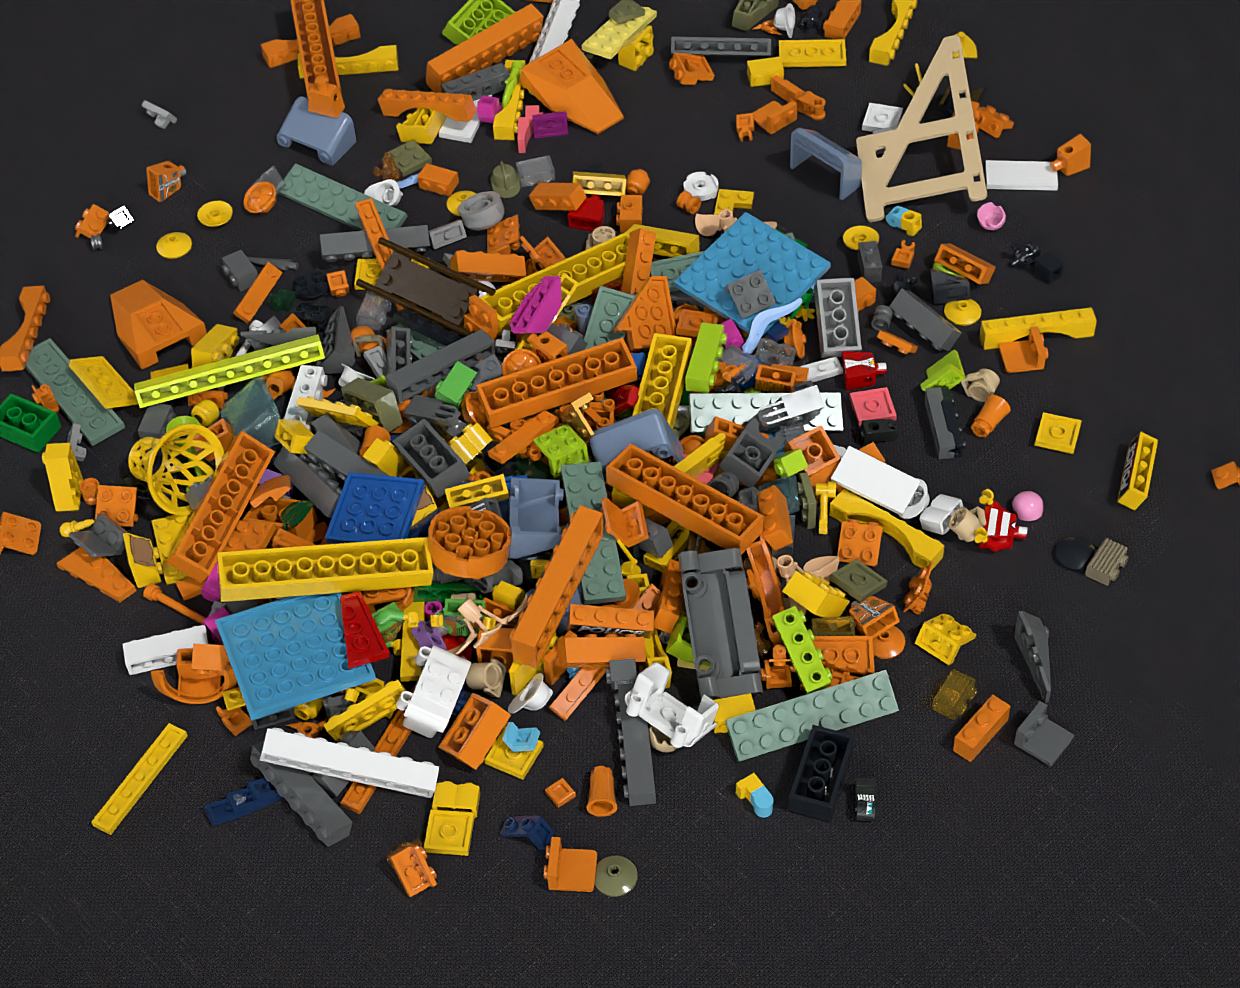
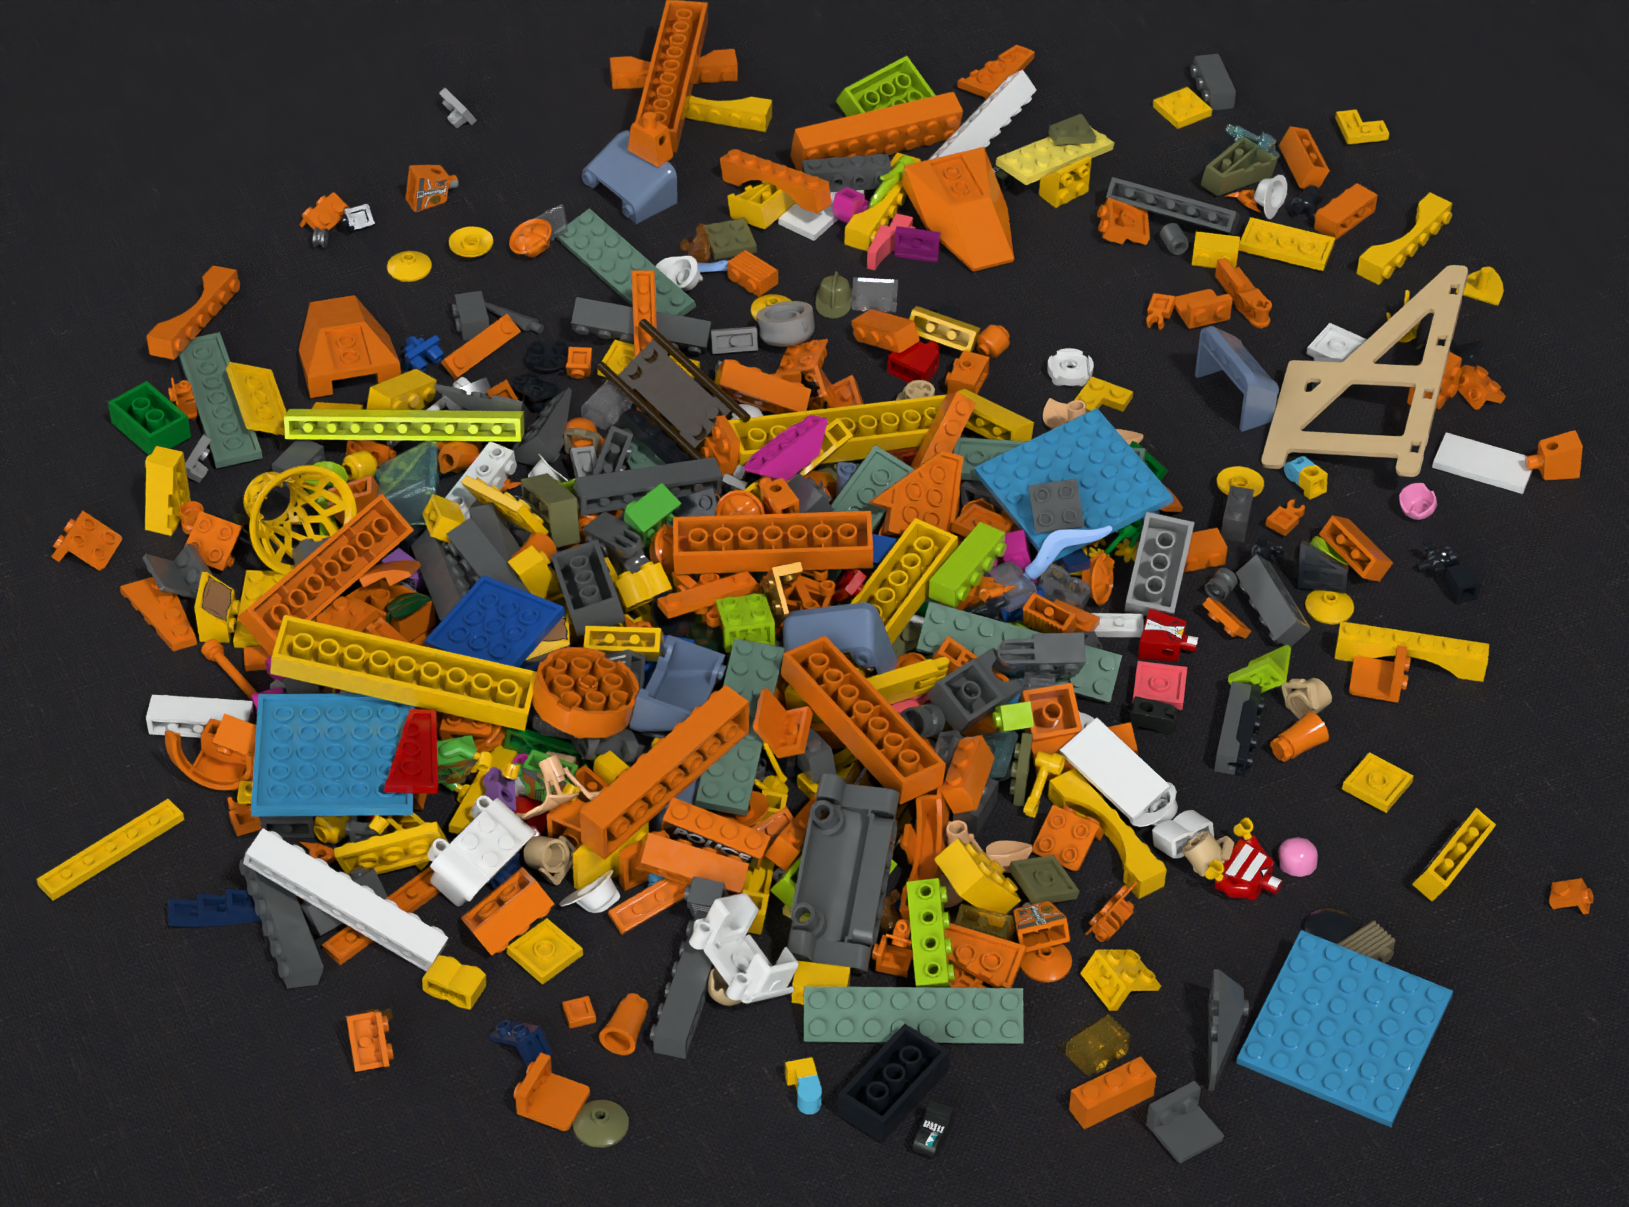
camera: 15 degrees right, 5 degrees down
(74, 526) = (158, 551): yellow bar -> none
(210, 310) = (418, 350): none -> blue hips
(283, 299) = (507, 364): clear green bracket -> none
(449, 832) = (430, 1015): yellow plate -> none
(520, 739) = (555, 935): medium azure bracket -> none
(689, 202) = (1048, 385): orange wheel -> none
(732, 70) = (1174, 238): none -> dark grey brick
(1122, 625) = (1345, 1028): none -> dark azure plate

